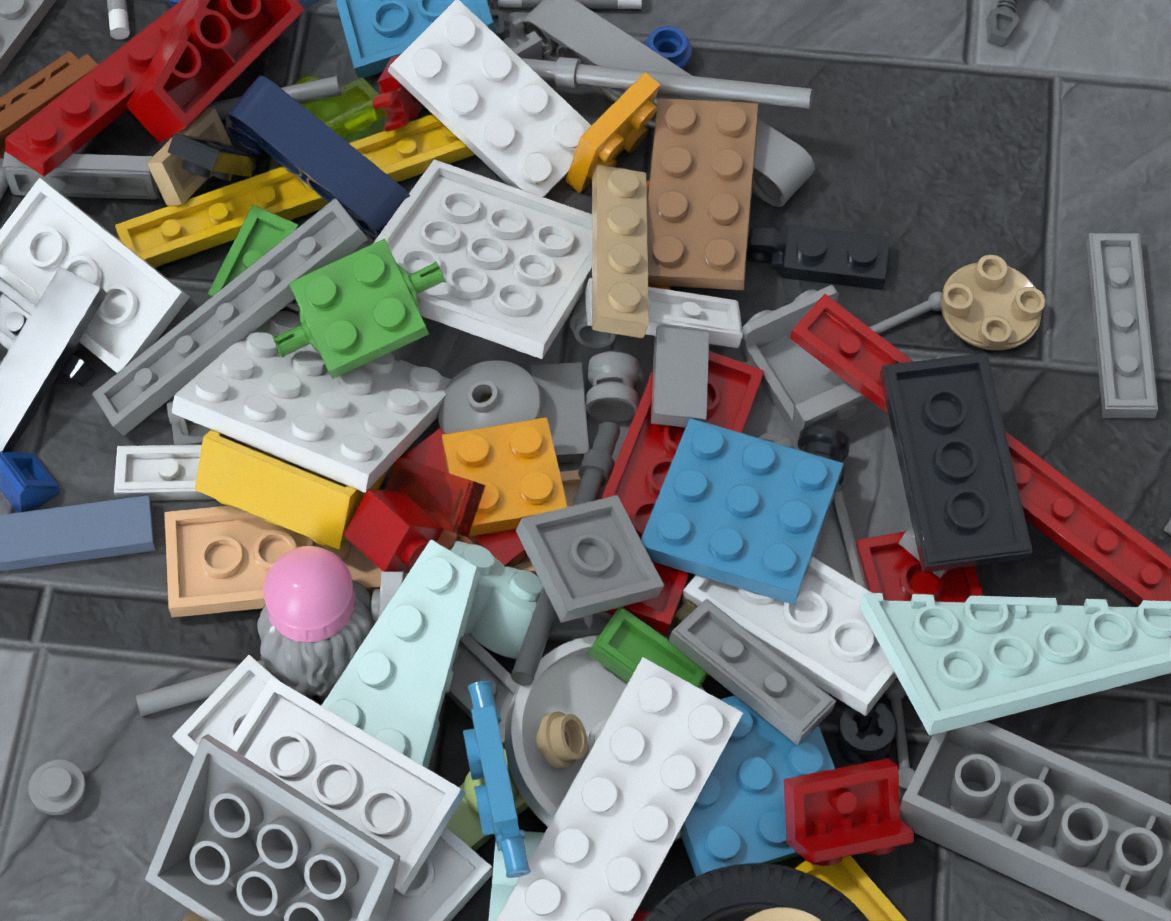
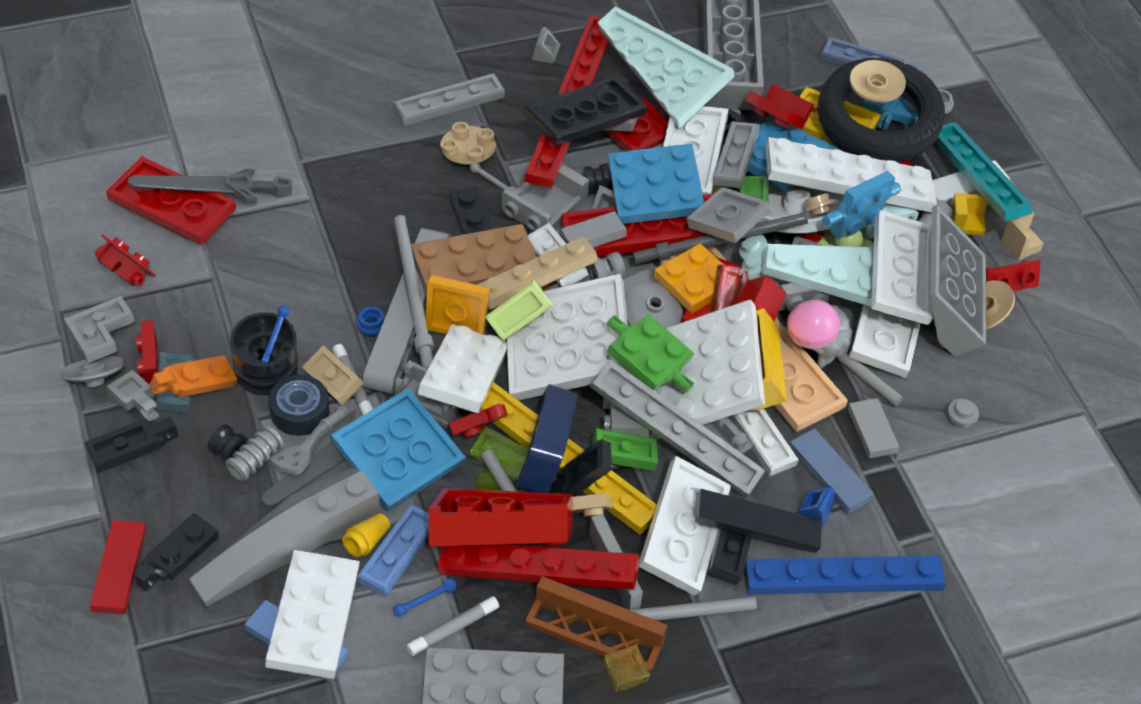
camera: 120 degrees left, 10 degrees down
(110, 636) = (873, 428): none -> light grey tile
(557, 199) = (518, 310): none -> yellowish green tile

